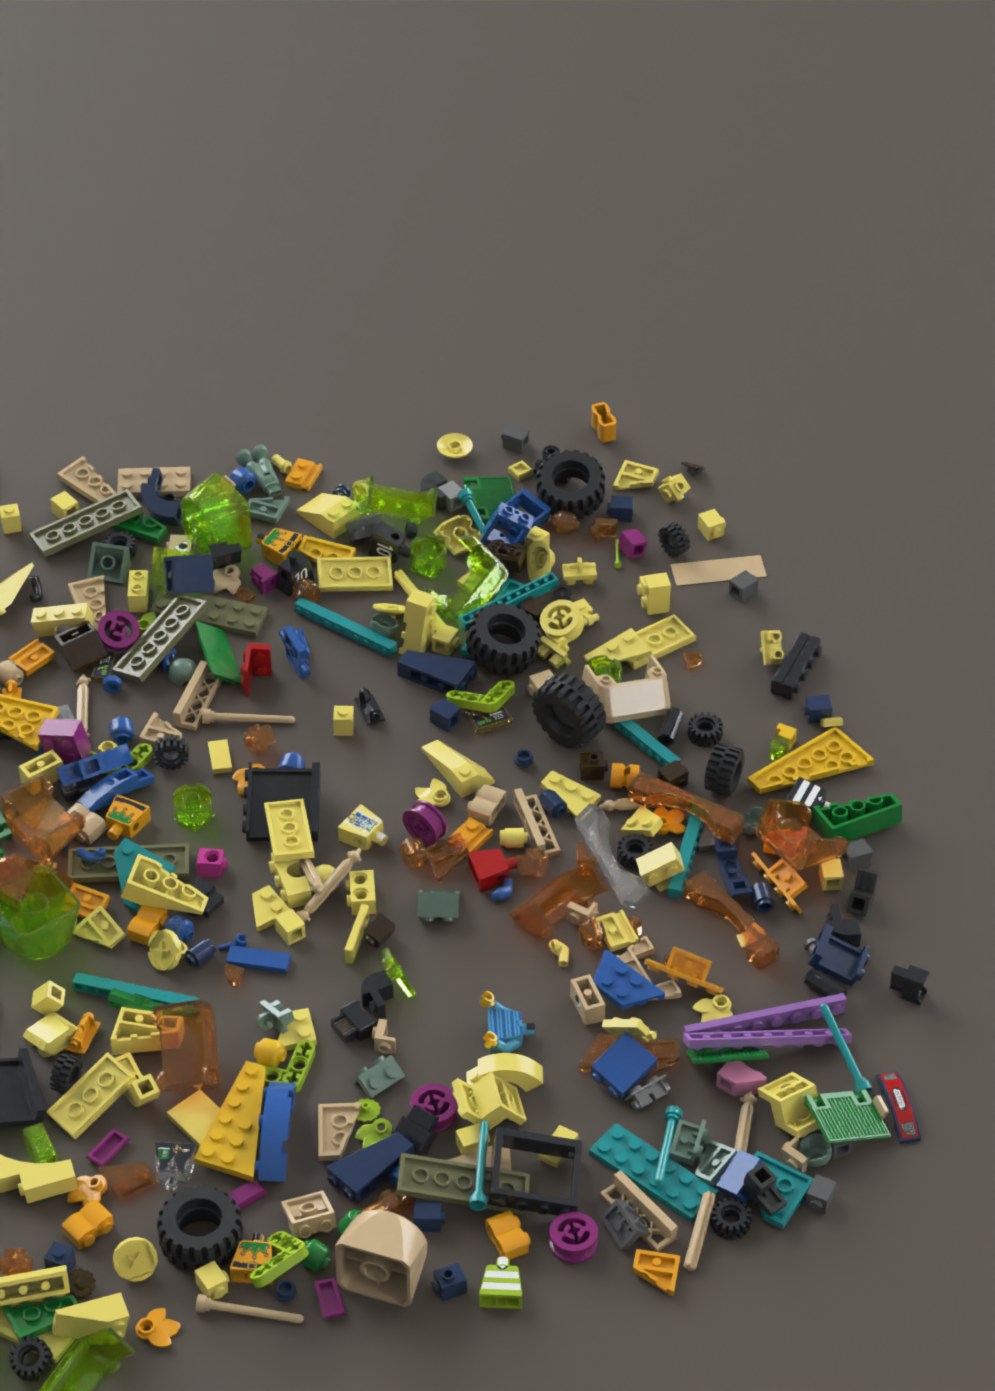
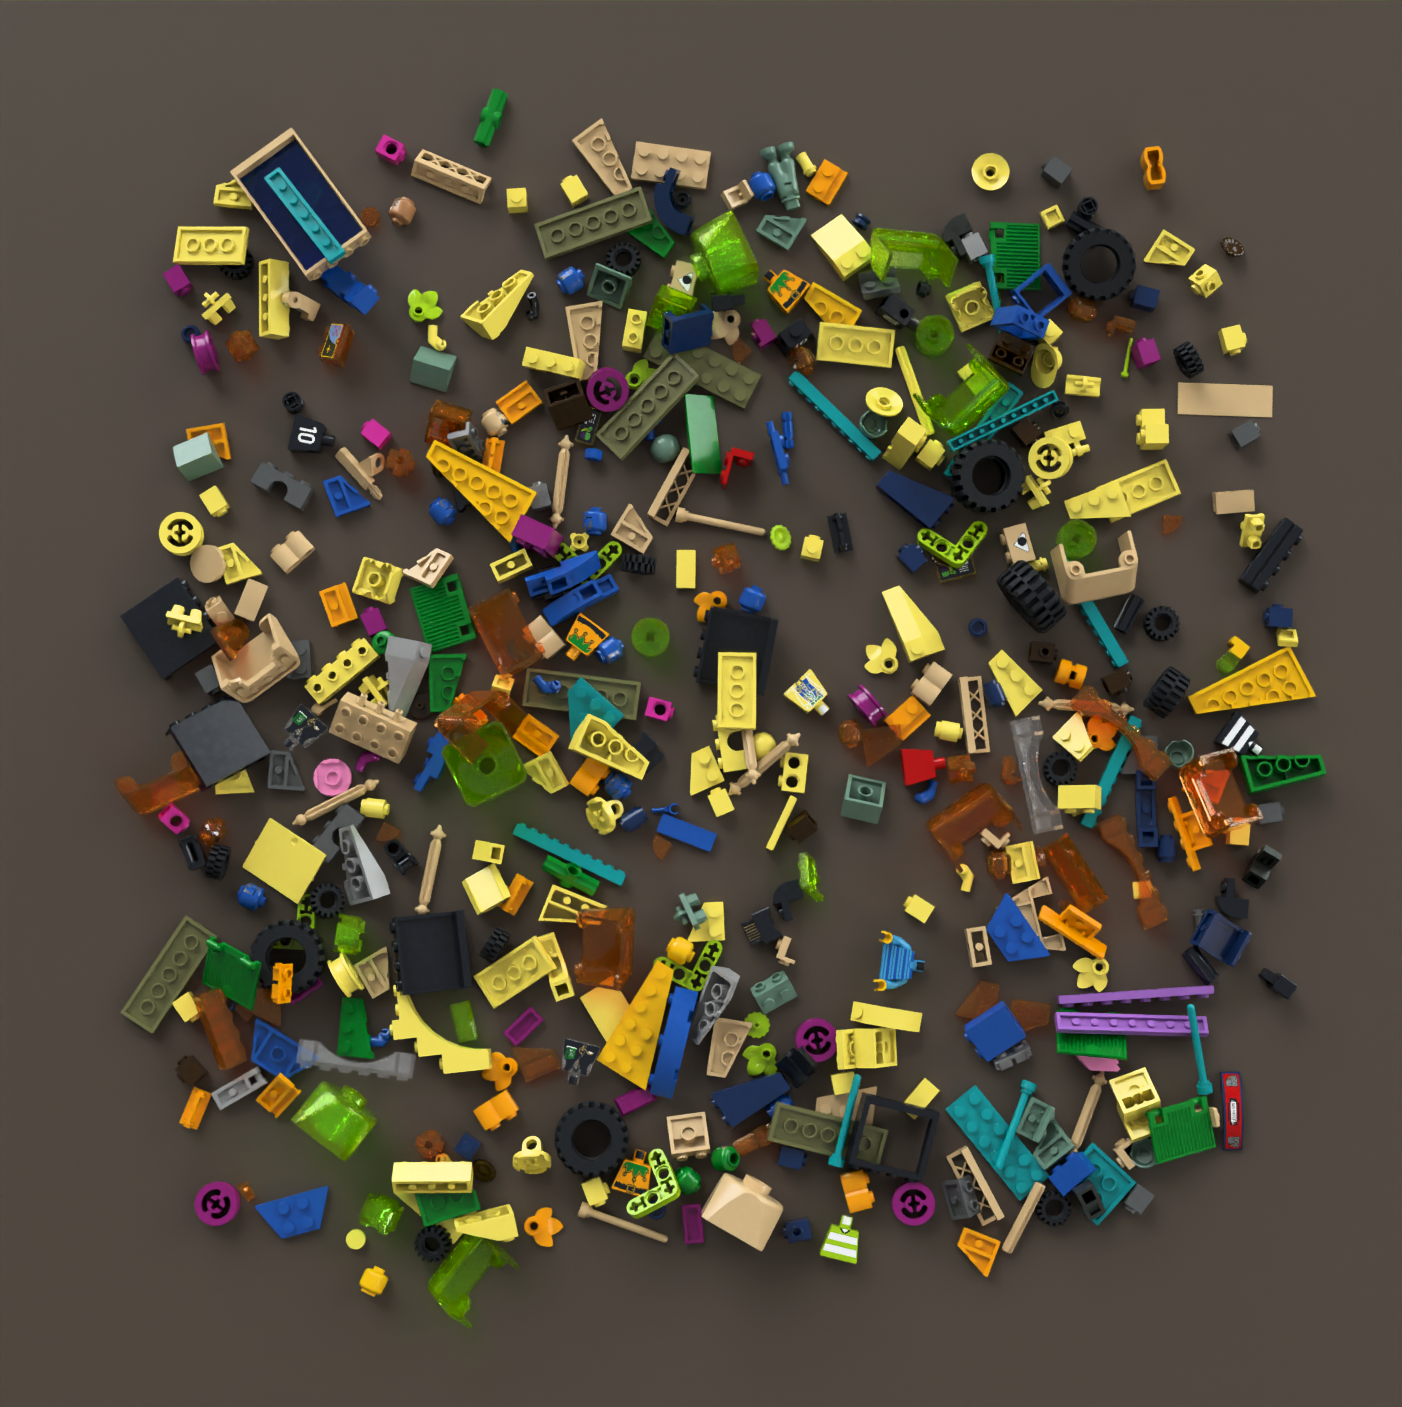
camera: 10 degrees right, 40 degrees up
(70, 566) = (570, 280): none -> blue head
(152, 824) = (609, 650): none -> blue head
(310, 718) = (780, 537): none -> lime piece
(316, 1079) = (712, 1001): none -> light grey wedge
(517, 981) = (918, 908): none -> light yellow brick
(633, 1026) = (1007, 1000): light yellow plate -> none
(672, 925) = (1075, 873): none -> clear orange brick
(745, 630) = (1233, 501): none -> tan hinge

